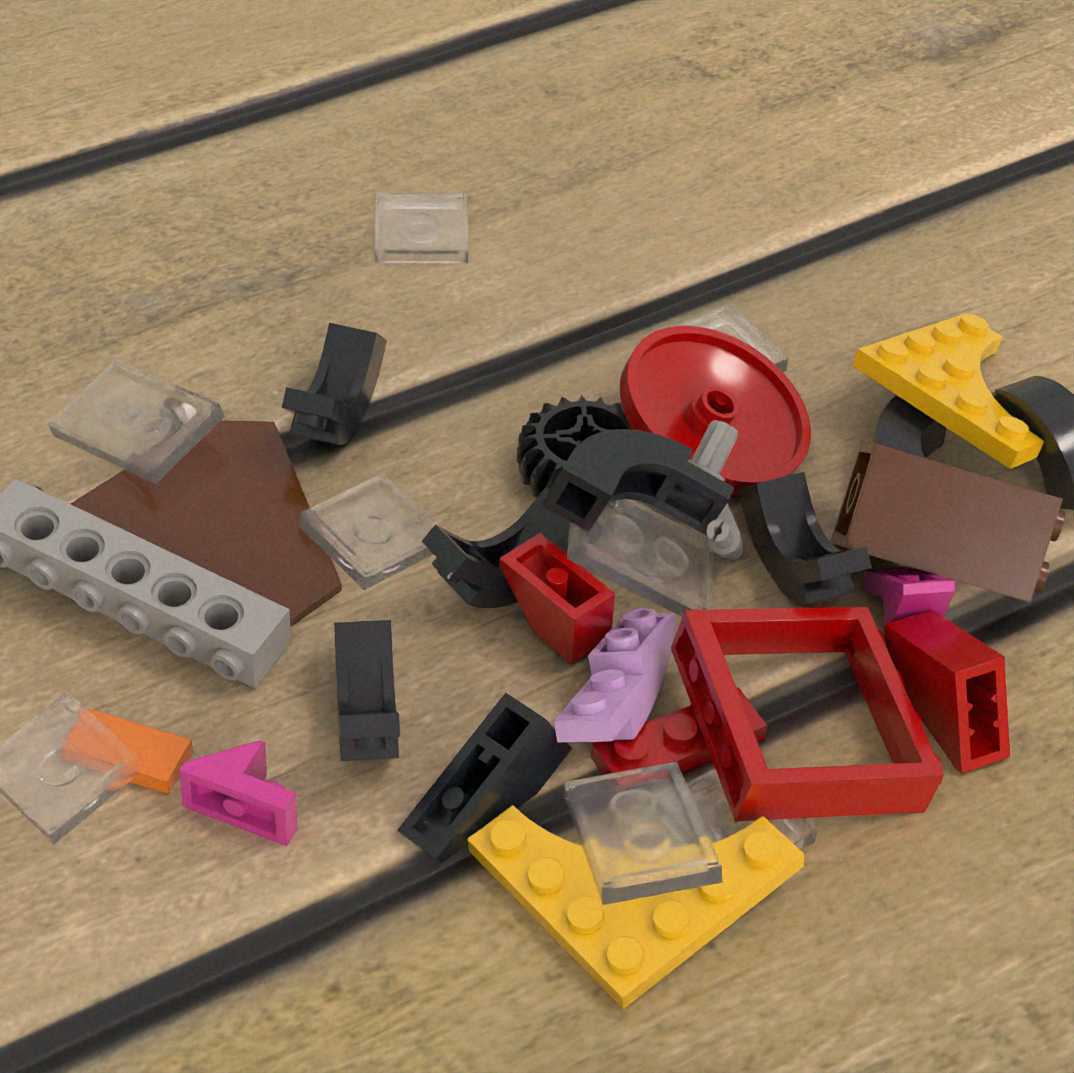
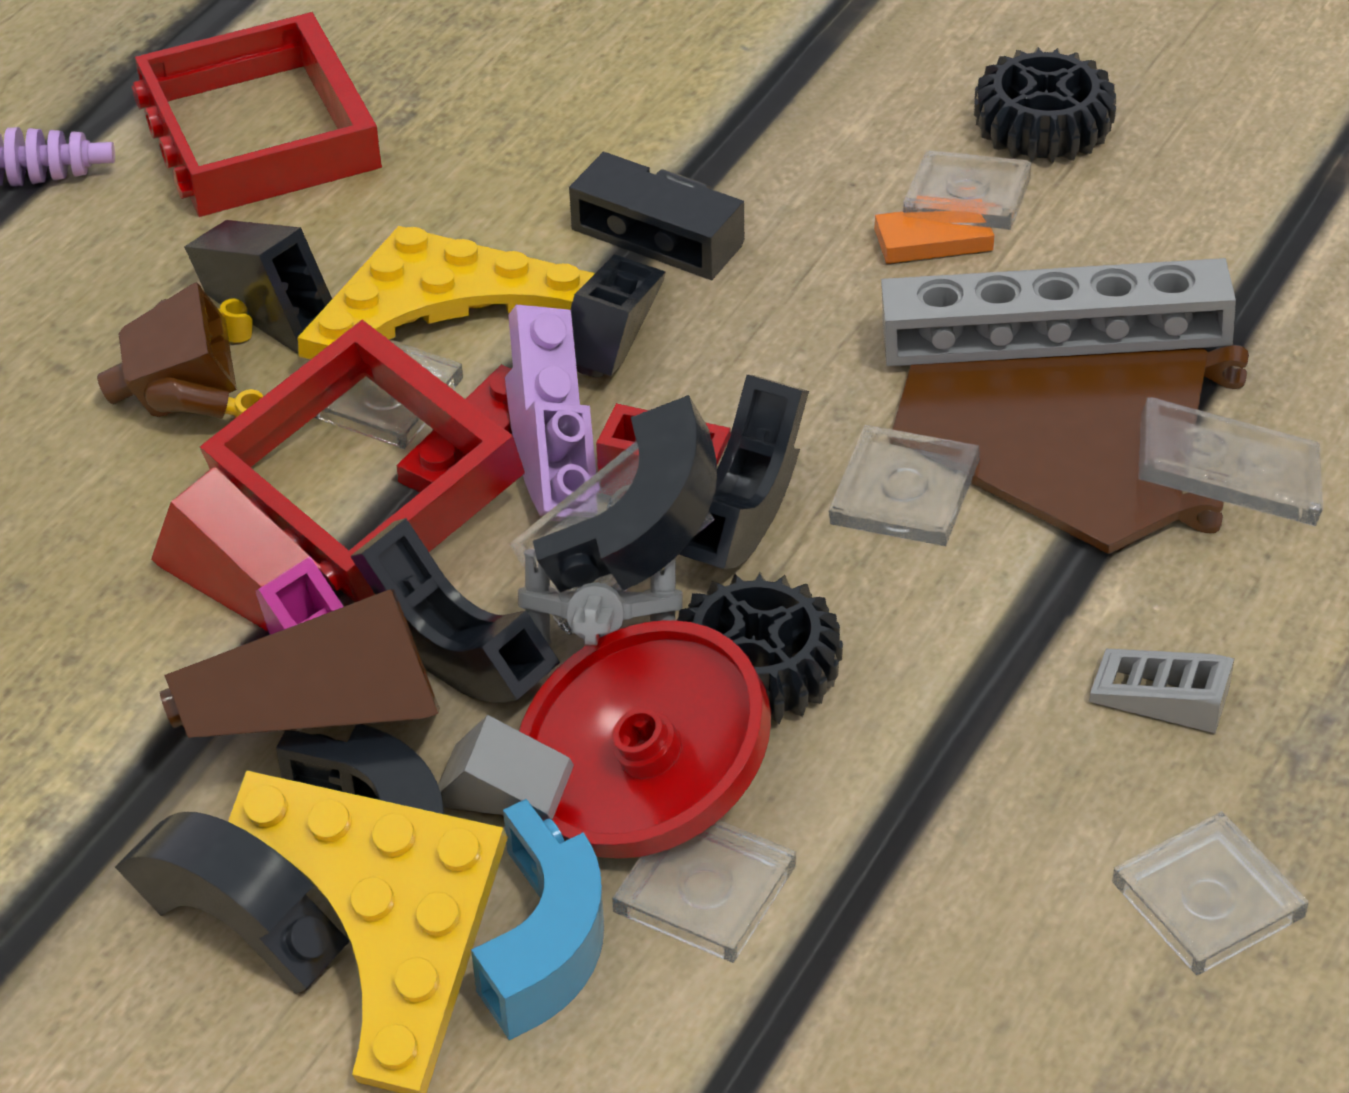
camera: 155 degrees right, 0 degrees up
(235, 791) = (810, 220): dark pink slope -> none
(311, 306) = (1195, 702): none -> light grey slope
(340, 388) = (1069, 594): black arch -> none
(366, 691) = (754, 314): black arch -> none
(375, 878) = (657, 215): none -> black piece
(642, 833) = (442, 301): clear tile -> none
(803, 971) = (266, 270): none -> black slope
(824, 439) = (501, 767): none -> light grey slope
(828, 351) = (552, 954): none -> dark azure arch
(919, 907) = (182, 357): none -> reddish brown torso

